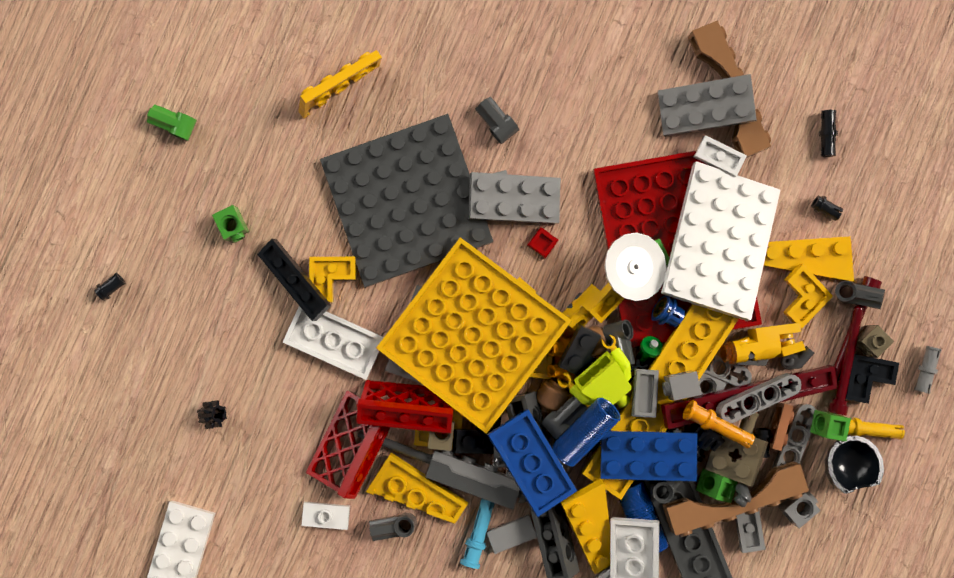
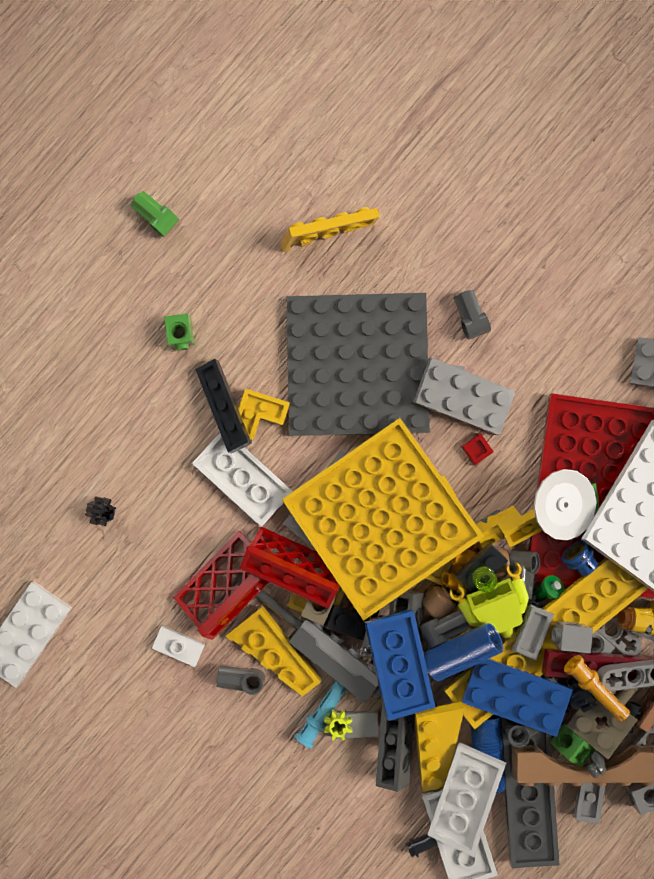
camera: 20 degrees right, 0 degrees up
(109, 286) = (42, 353): black pin -> none
(495, 544) = (334, 730): none -> neon yellow gear
(579, 353) = (481, 572): none -> clear neon green bush

